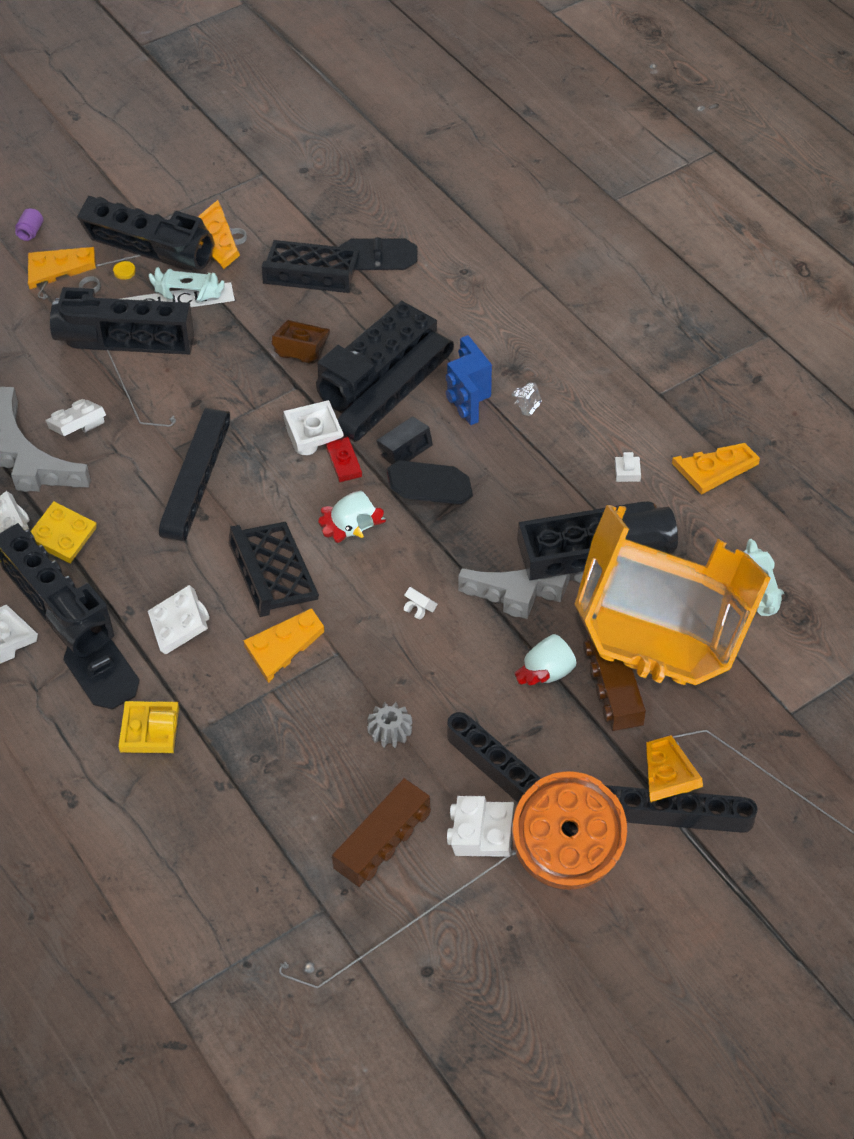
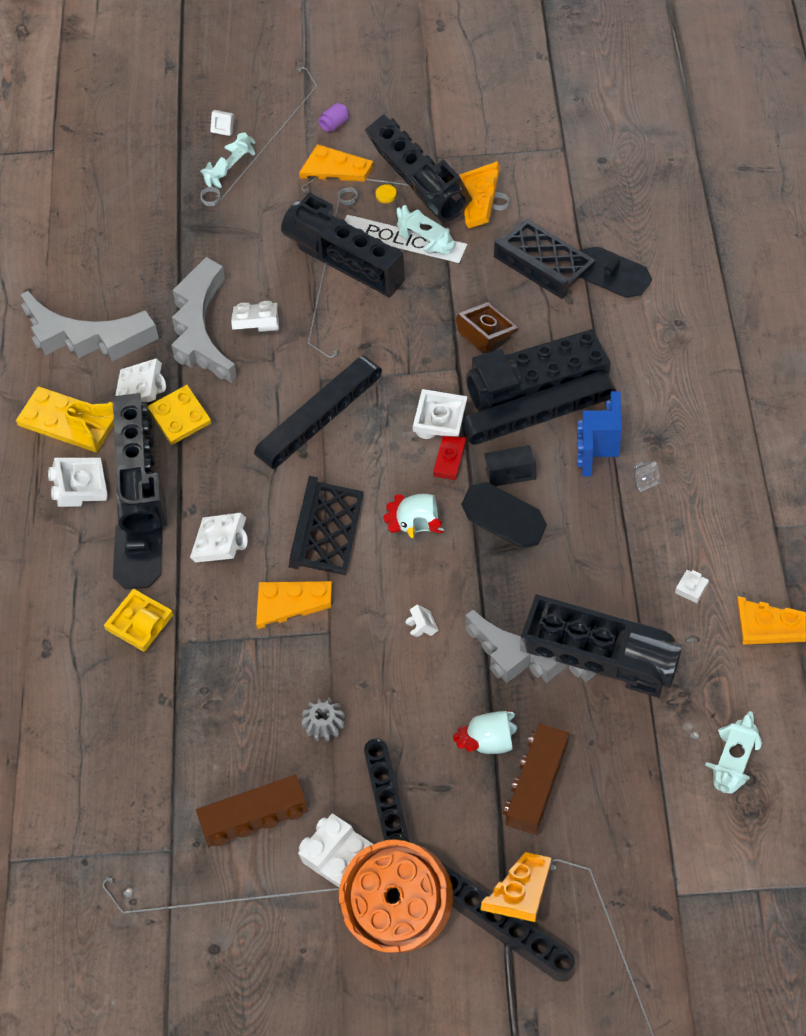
camera: 35 degrees right, 5 degrees up
(664, 609) = (611, 735): windscreen -> none

